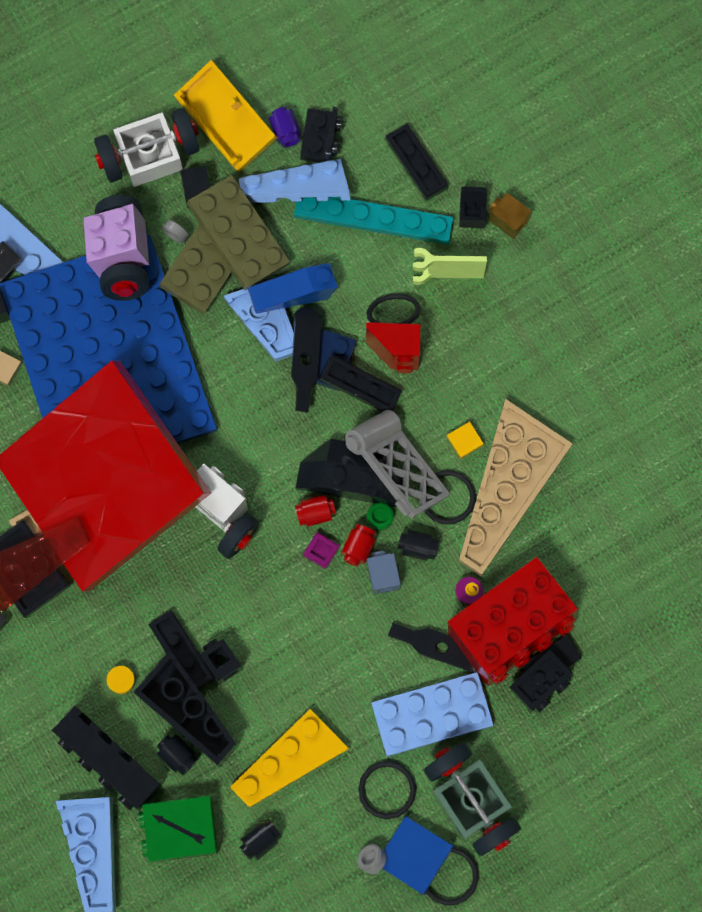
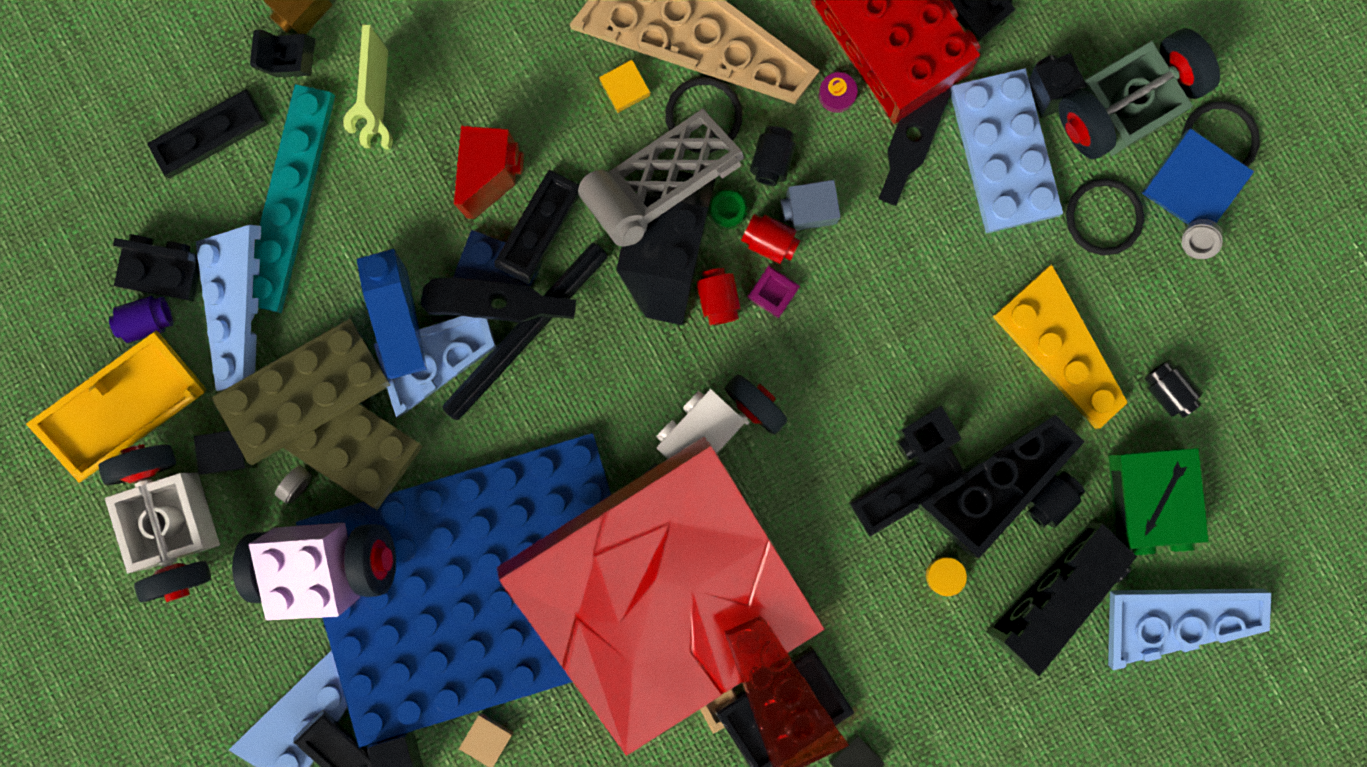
camera: 85 degrees left, 10 degrees up
(284, 378) = (522, 335): none -> black axle
(395, 296) = (409, 170): black piece -> none
(482, 743) = (1052, 81): none -> black brick

